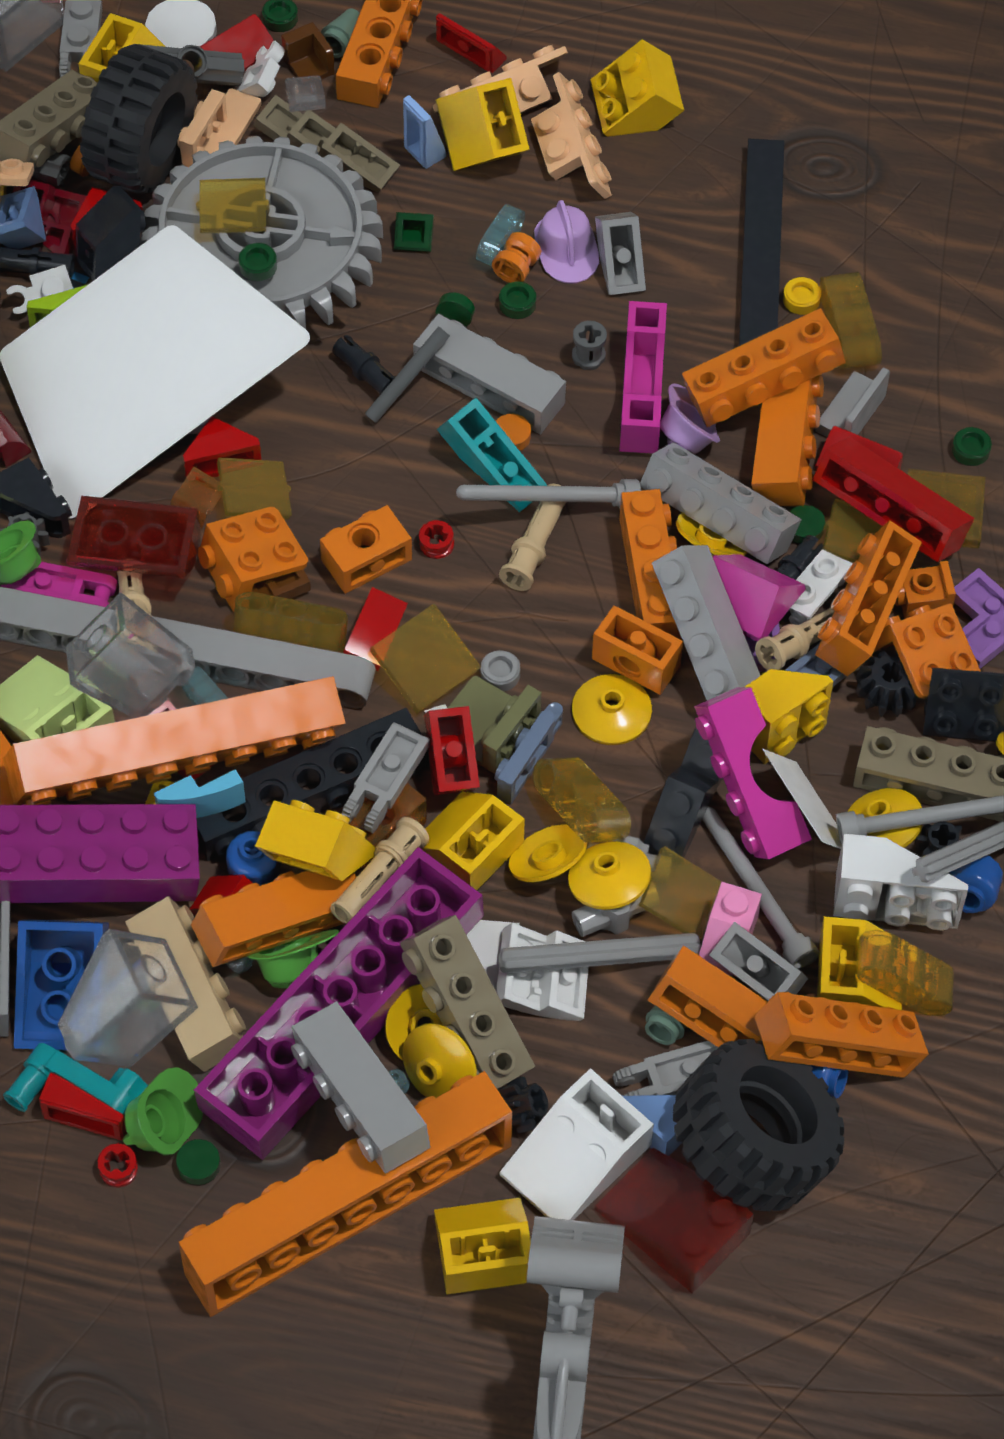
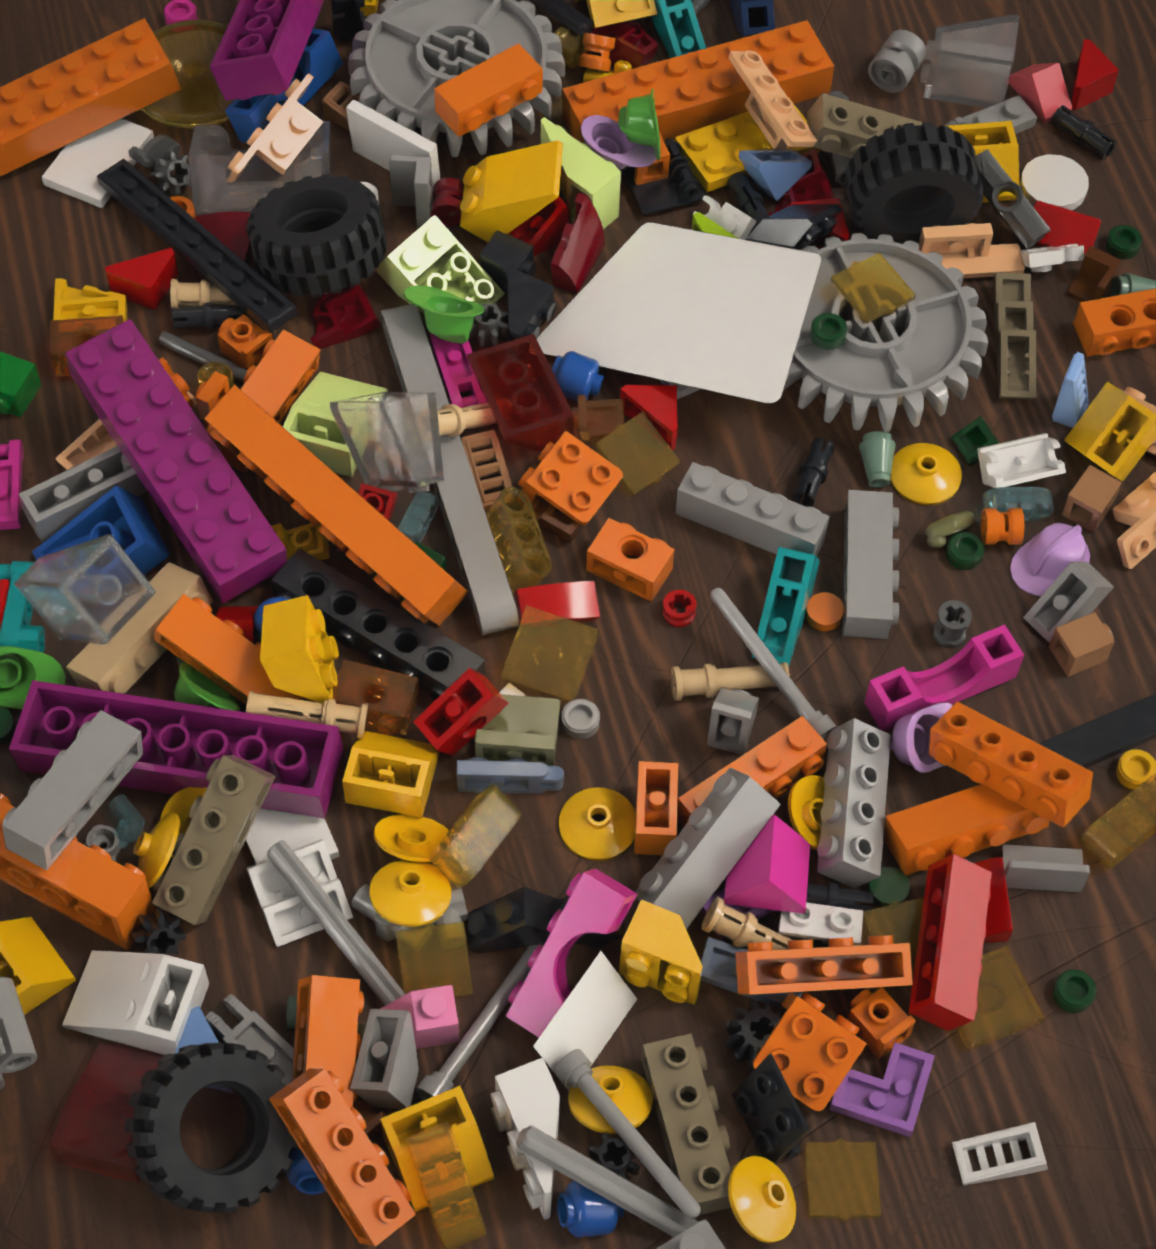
camera: 60 degrees right, 0 degrees up
(139, 485) = (577, 375): none -> blue head
(179, 602) = (484, 448): none -> medium nougat slope
(210, 798) = (305, 559): medium azure slope -> none
(305, 93) = (1048, 293): clear plate -> none
(381, 432) = (749, 512): none -> light grey brick
(384, 310) = (878, 456): none -> sand green cone
(386, 774) = (400, 672): light grey hinge -> none
(407, 374) = (833, 501): dark grey bar -> none
(414, 298) = (922, 484): none -> yellow dish
(456, 307) = (915, 507): dark green tile -> none
(463, 209) = (1019, 461): none -> white hinge
(490, 299) = (954, 523): none -> olive arm
(531, 180) = (1091, 498): none -> medium nougat brick
(584, 549) = (732, 720): none -> light grey slope
(667, 266) = (1081, 644): none -> medium nougat brick

